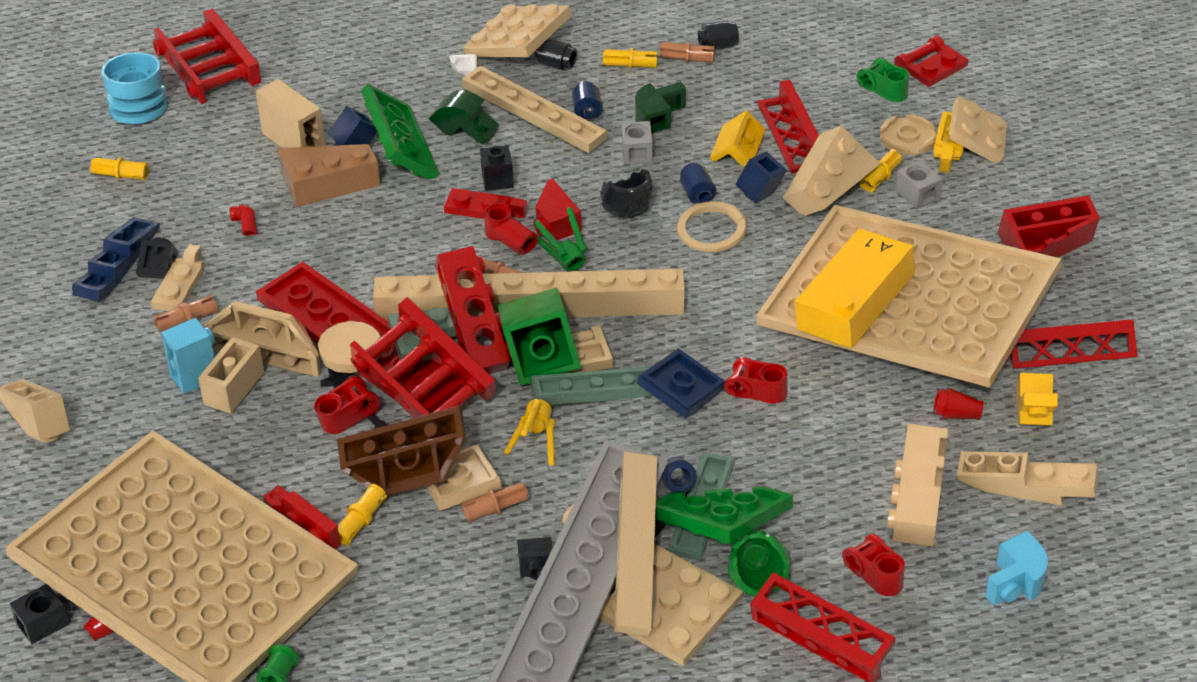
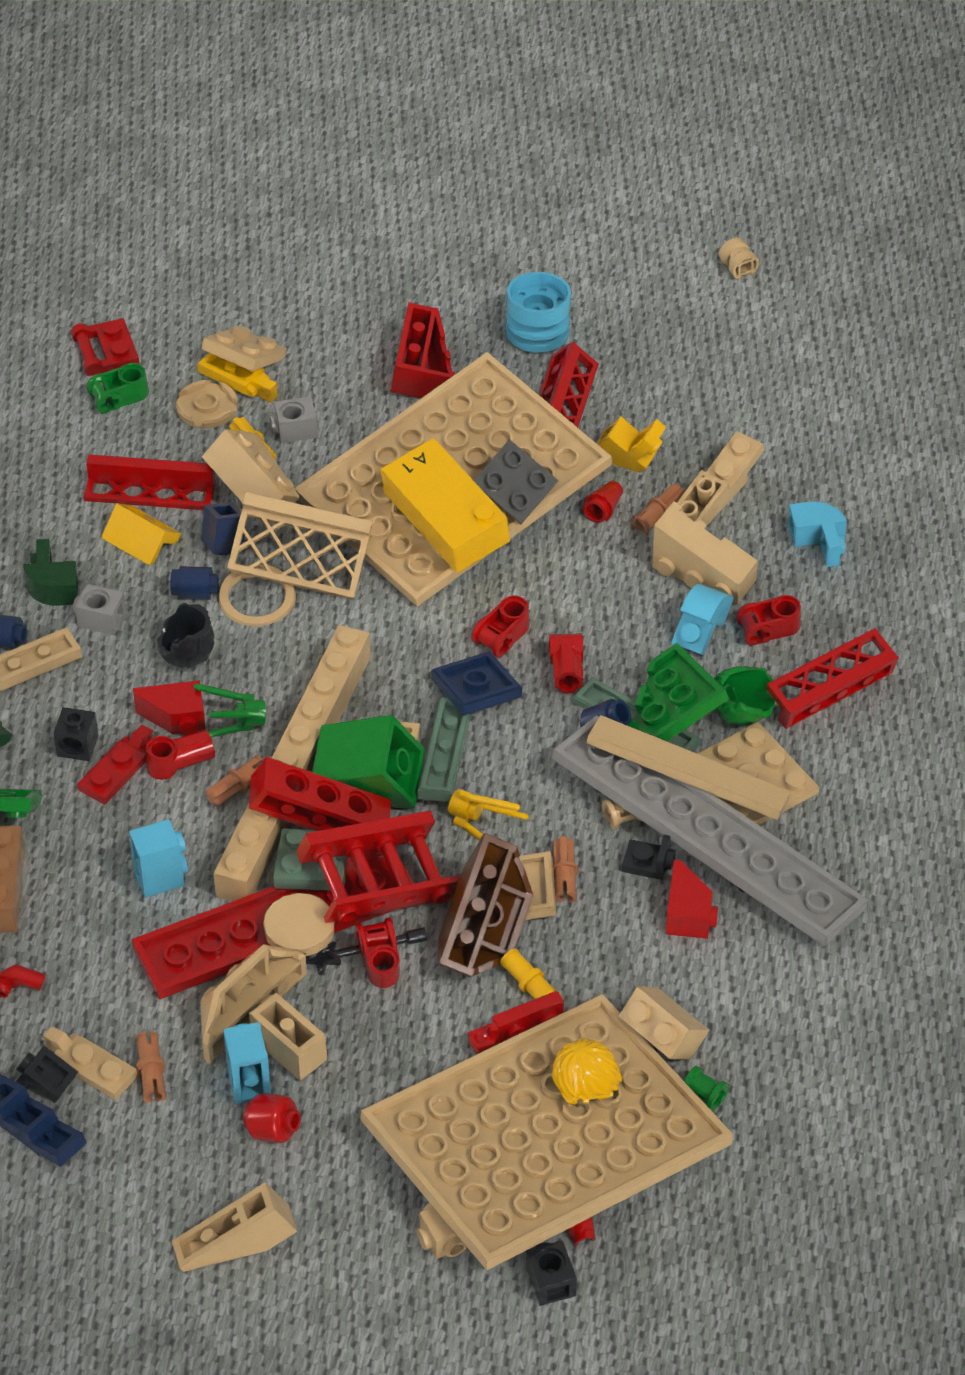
camera: 70 degrees left, 5 degrees up
(152, 390) = (271, 1117): none -> red head
(240, 562) = (585, 1071): none -> yellow hair
(333, 612) = (663, 1023): none -> tan brick
(380, 243) = (158, 857): none -> medium azure brick
(489, 595) = (689, 904): none -> red slope
(748, 430) = (567, 661): none -> red piece
(788, 219) = (304, 518): none -> tan fence
(851, 504) = (701, 613): none -> medium azure brick
(910, 321) = (515, 481): none -> dark grey hinge
(959, 442) = (656, 507): none -> nougat axle
(1154, 286) = (538, 312): none -> medium azure wheel

